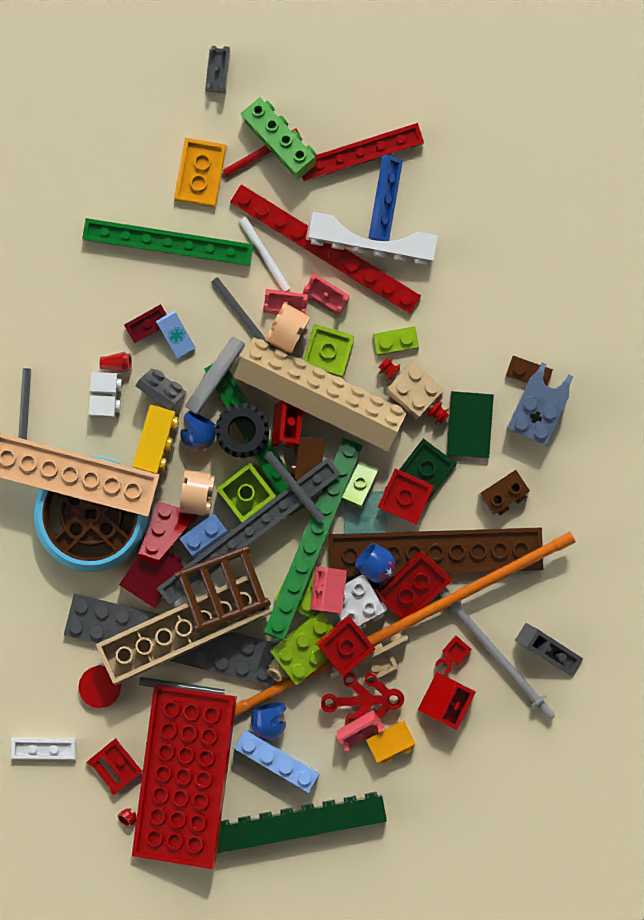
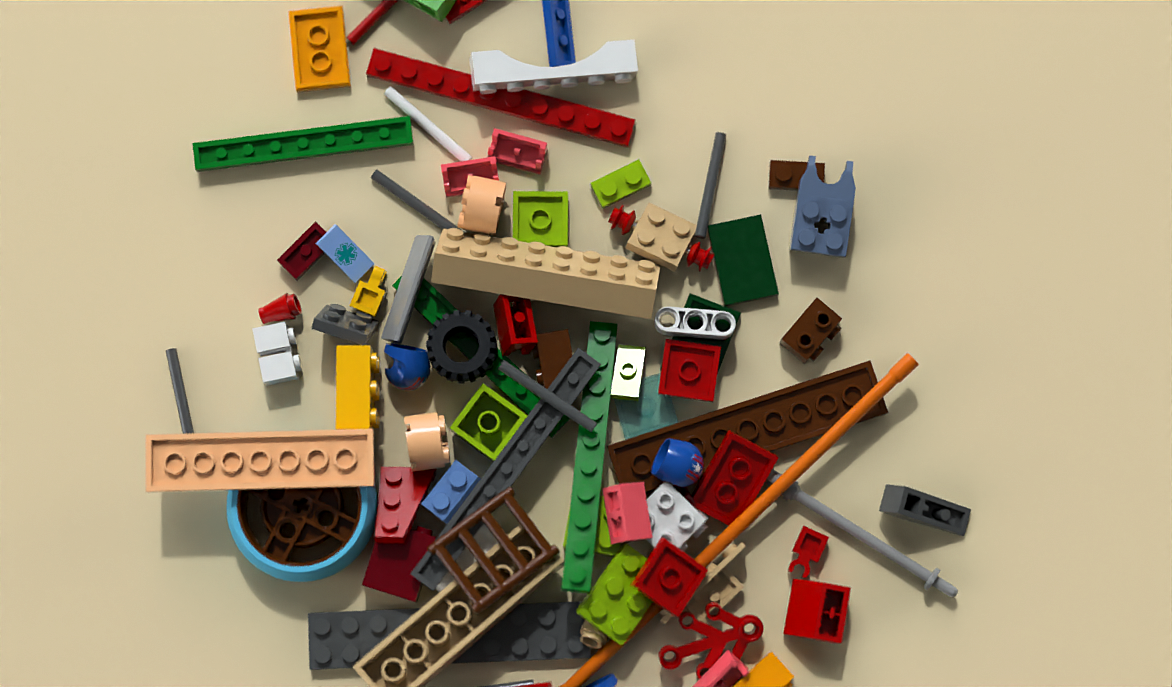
camera: 10 degrees left, 5 degrees down
(184, 371) = (368, 295): none -> yellow plate
(408, 462) = (708, 319): none -> white beam
(462, 361) = (710, 185): none -> dark grey bar

